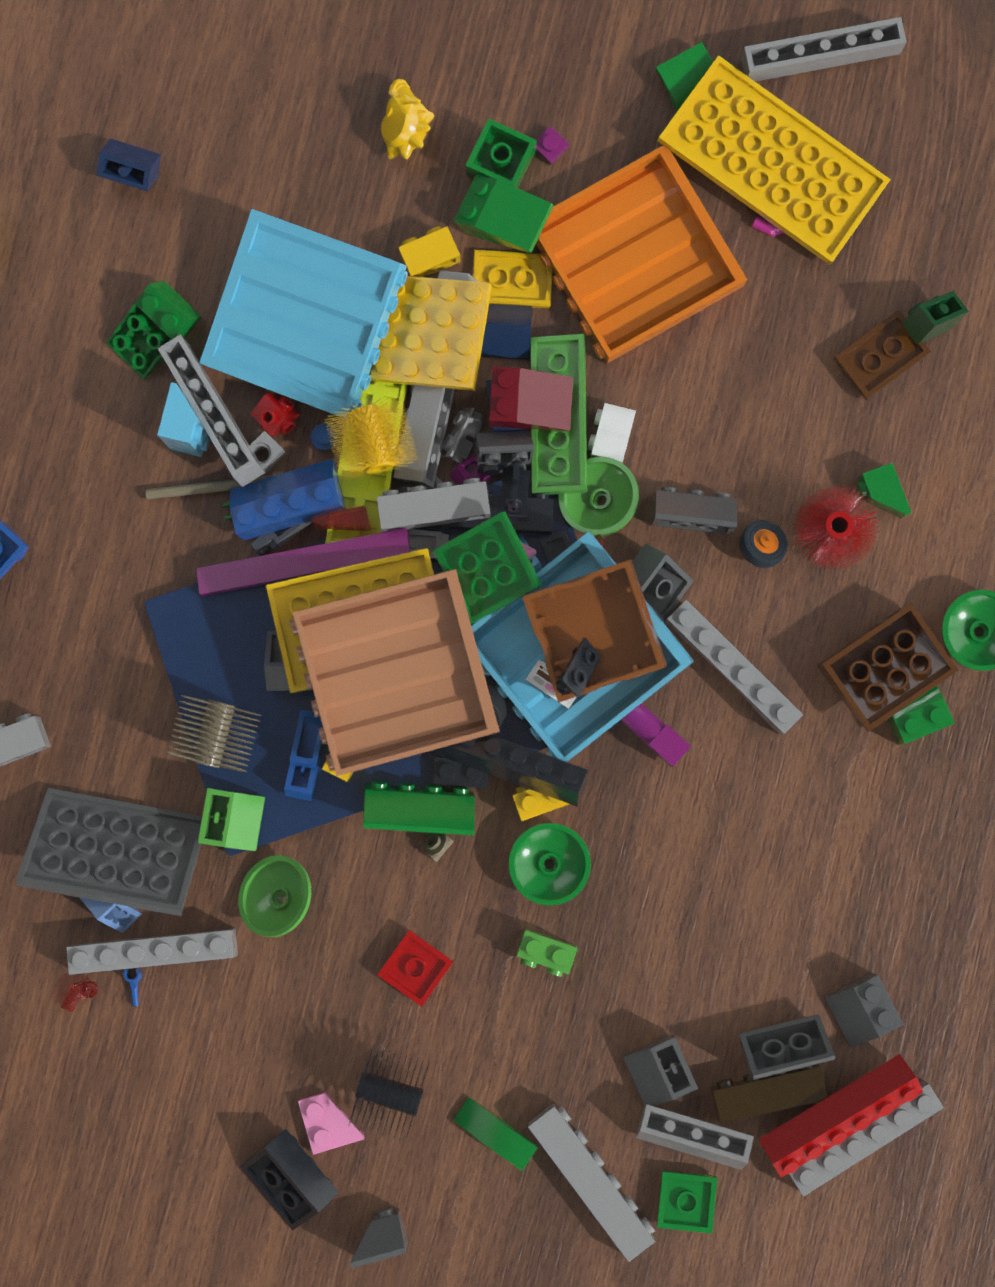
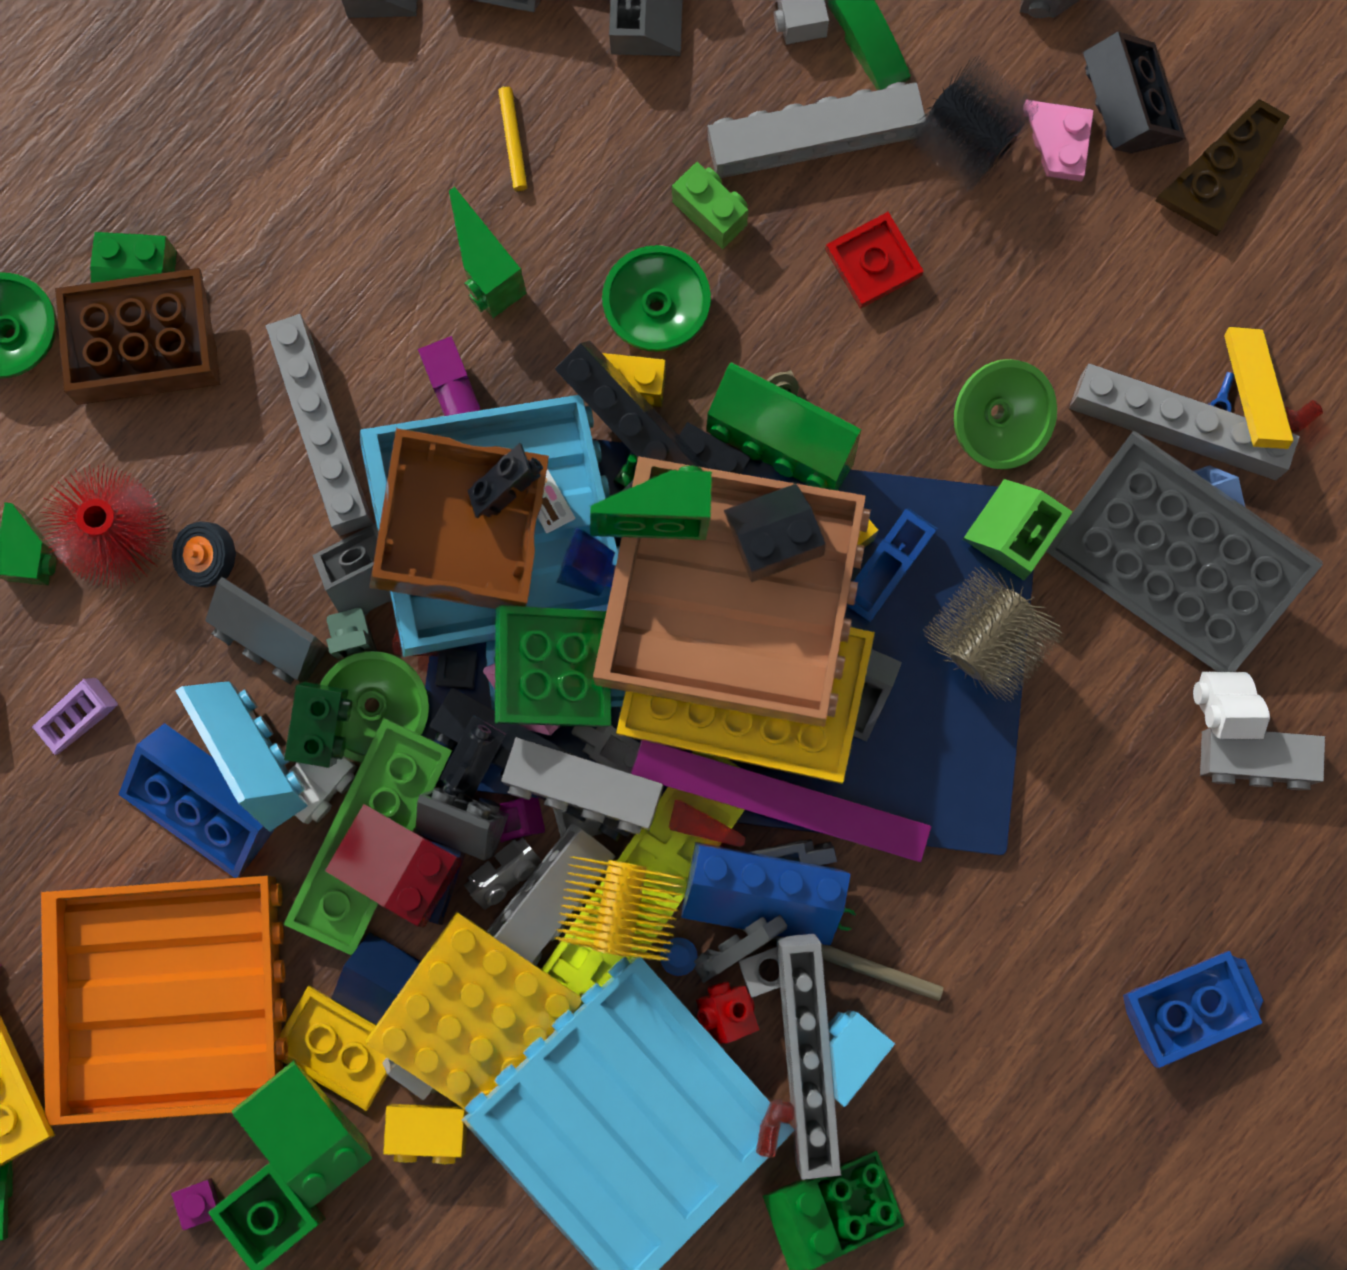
camera: 150 degrees left, 5 degrees down
(38, 766) = (1231, 705): none -> white brick
(111, 996) = (1258, 388): none -> yellow tile
(202, 1148) = (1220, 176): none -> dark brown wing
(213, 350) = (770, 1126): none -> clear red arm
(286, 456) = (760, 932): none -> dark grey hinge
(384, 720) = (775, 532): none -> black slope
(458, 700) = (662, 508): none -> green slope
(498, 645) = (587, 564): none -> clear blue slope
(499, 1044) = (815, 129): none -> light grey brick
(508, 730) = (627, 472): none -> green hand
(624, 463) = (317, 725): none -> dark green brick
(637, 535) = (349, 634): none -> sand green slope
(663, 425) = (244, 751): none -> medium azure slope
(679, 386) = (192, 800): none -> blue slope
(679, 831) = (491, 272): none -> green slope
(709, 937) = (512, 139): none -> yellow bar
(784, 417) = (87, 687): none -> lavender slope

